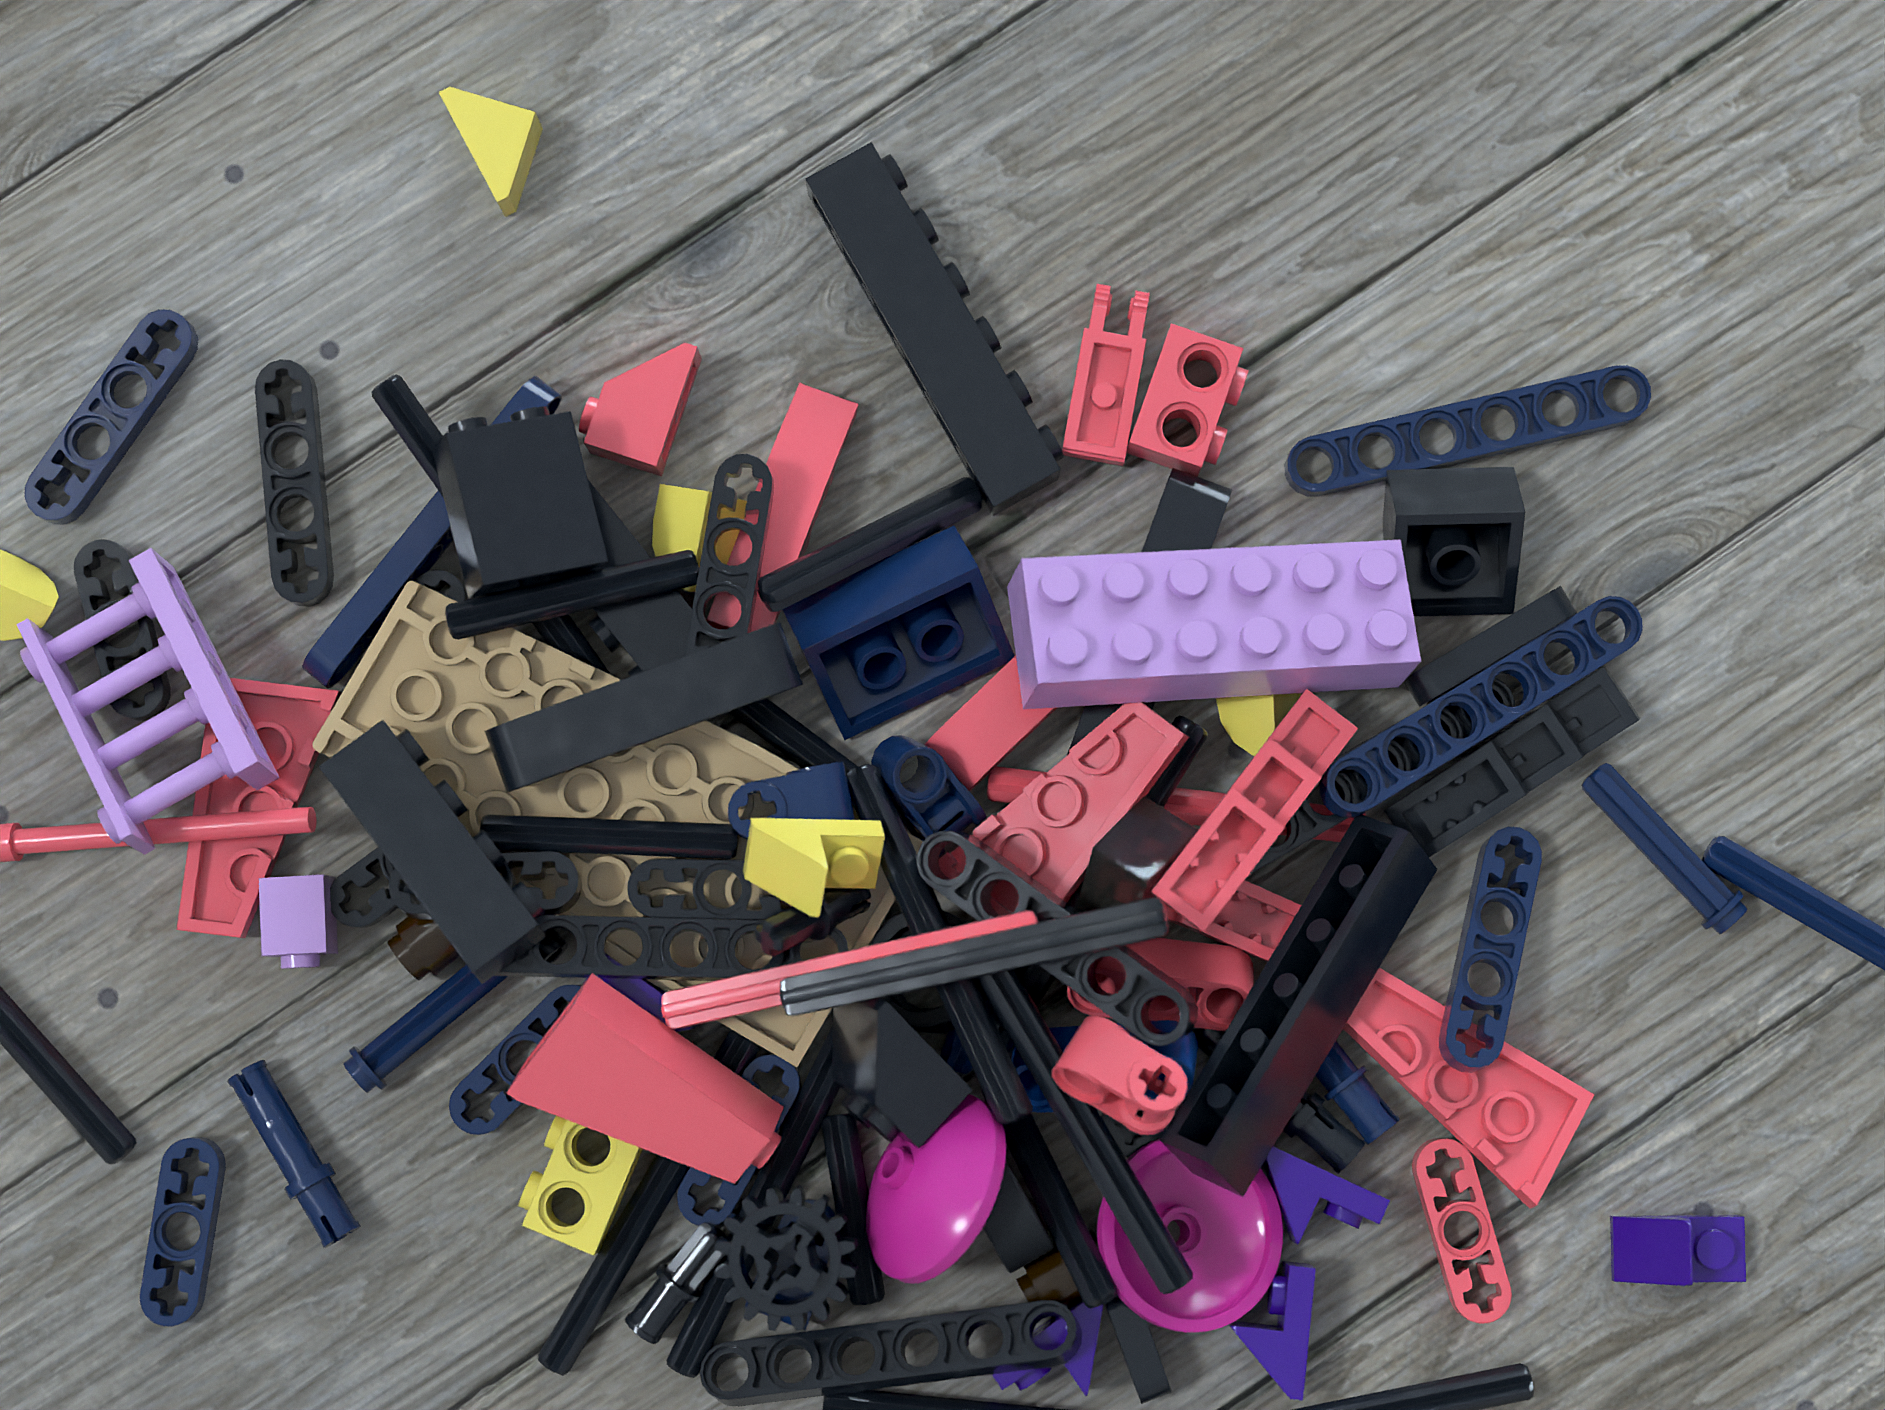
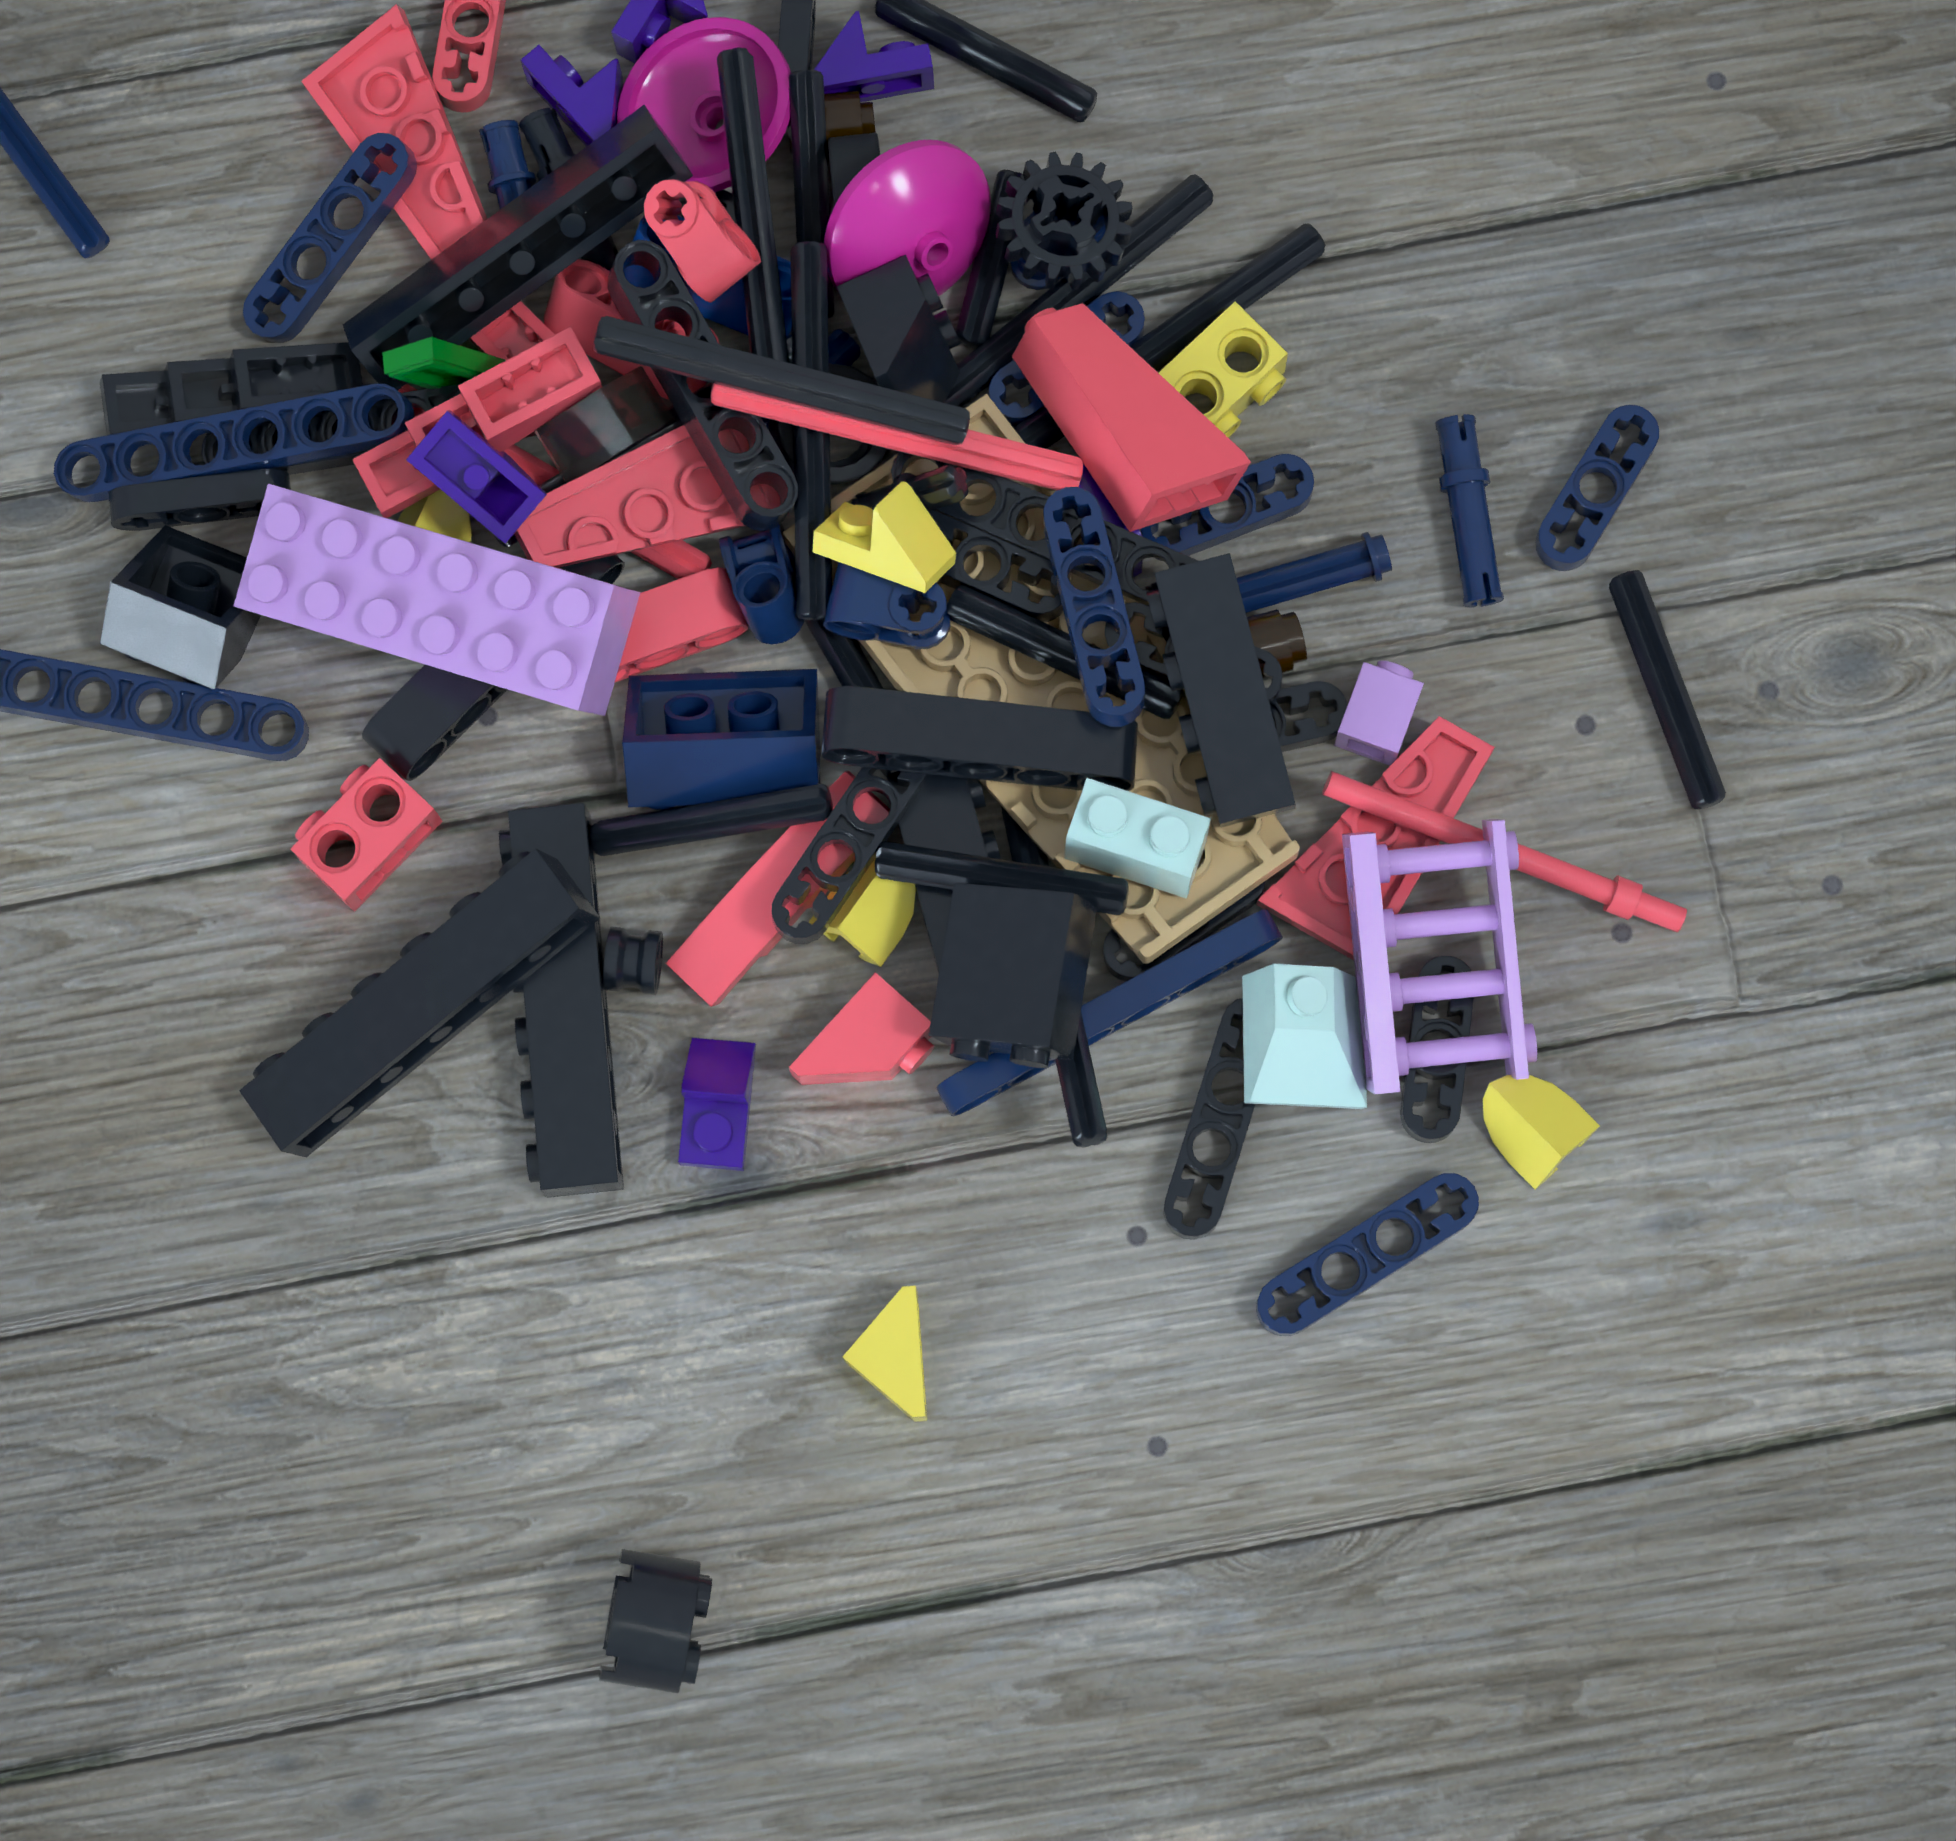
camera: 150 degrees left, 5 degrees down
(245, 579) = (1302, 1038): none -> light aqua slope
(457, 678) = (1136, 838): none -> light aqua brick
(582, 883) = (1093, 606): none -> dark blue beam
(676, 1284) = (1173, 257): black axle -> none
(756, 302) = (716, 1103): none -> dark purple slope
(887, 391) = (633, 960): none -> black wheel
(890, 1363) = (1015, 106): black beam -> none
(1056, 258) = (418, 1002): none -> black brick
(1106, 383) = (429, 880): coral hinge -> none
(1223, 748) = (477, 476): none -> dark purple slope
(1309, 853) = (436, 363): none -> green tile
(1664, 849) = (154, 321): dark blue axle -> none

